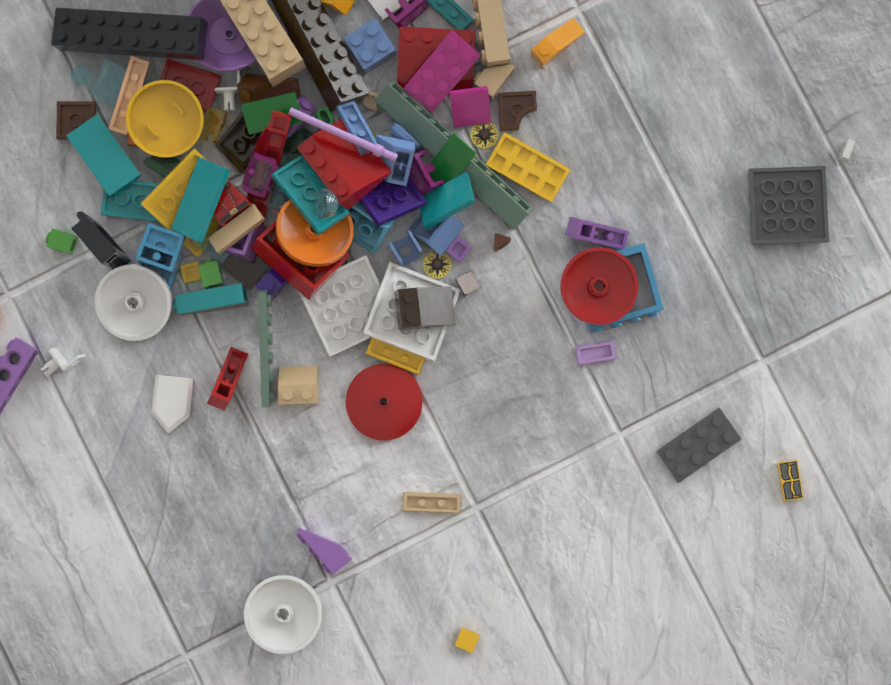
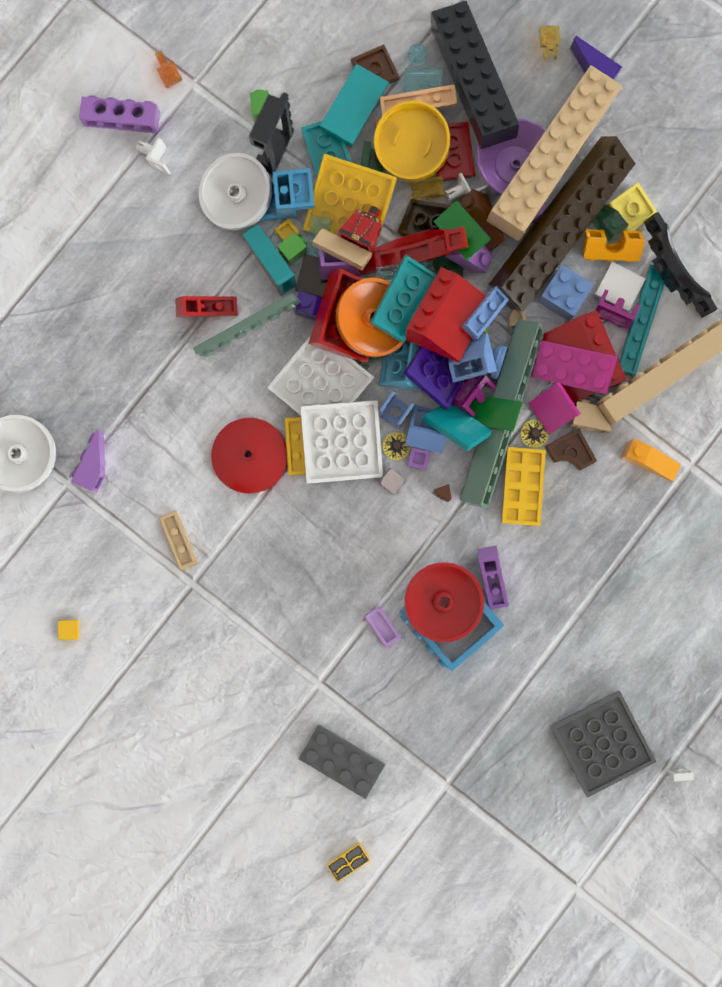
camera: 65 degrees right, 0 degrees up
(172, 400) = (165, 268): white tile -> none
(200, 199) = (352, 203): teal tile -> none
(258, 174) = (399, 245): magenta window -> none
(298, 385) = (228, 372): tan slope -> none
(324, 115) = (480, 280): green piece -> none
(325, 204) = (400, 314): clear light blue hair -> none
(378, 150) = (472, 338): lavender bar -> none
(424, 307) = (350, 451): slope -> none

